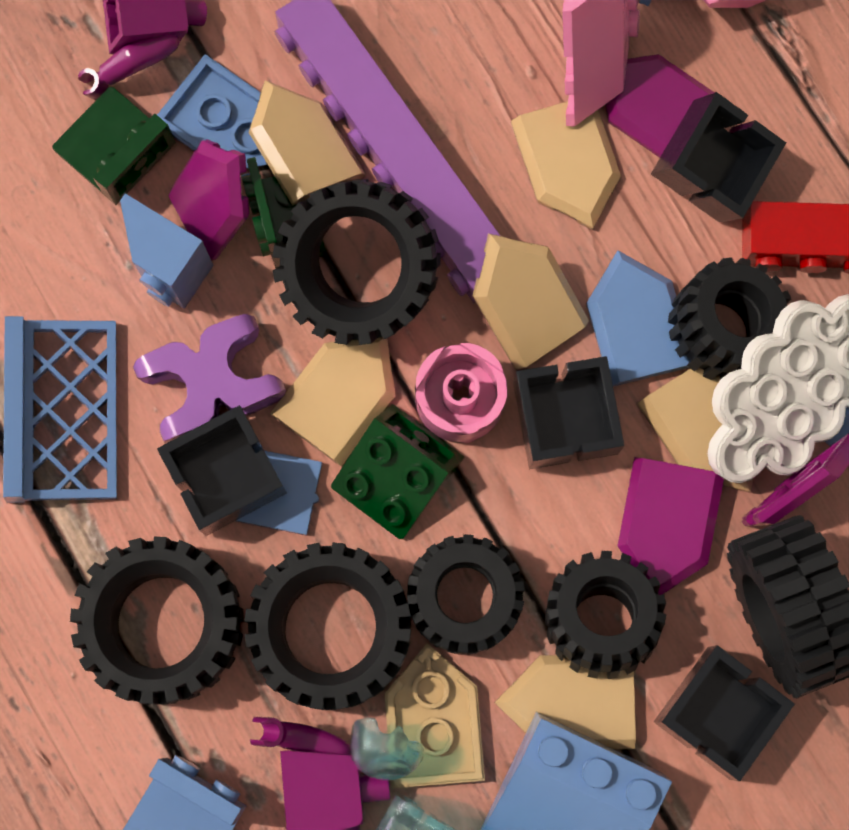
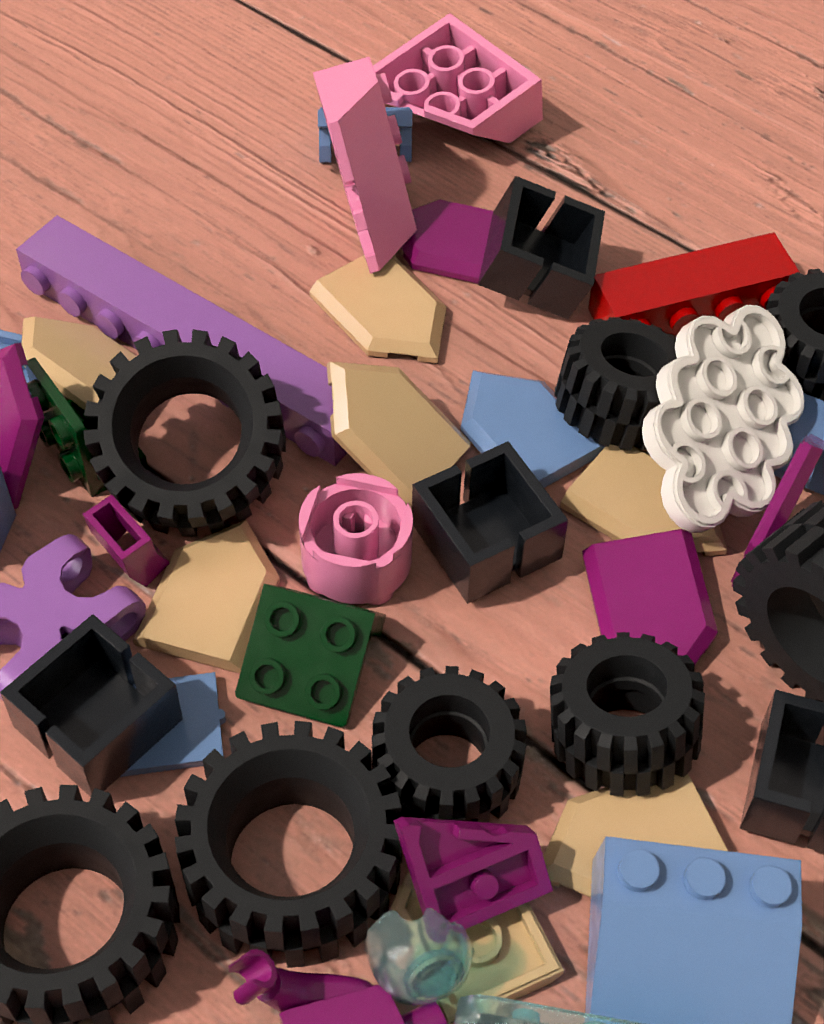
camera: 20 degrees left, 25 degrees down
(272, 317) = (108, 523): none -> magenta piece
(444, 698) = (472, 867): none -> magenta wing

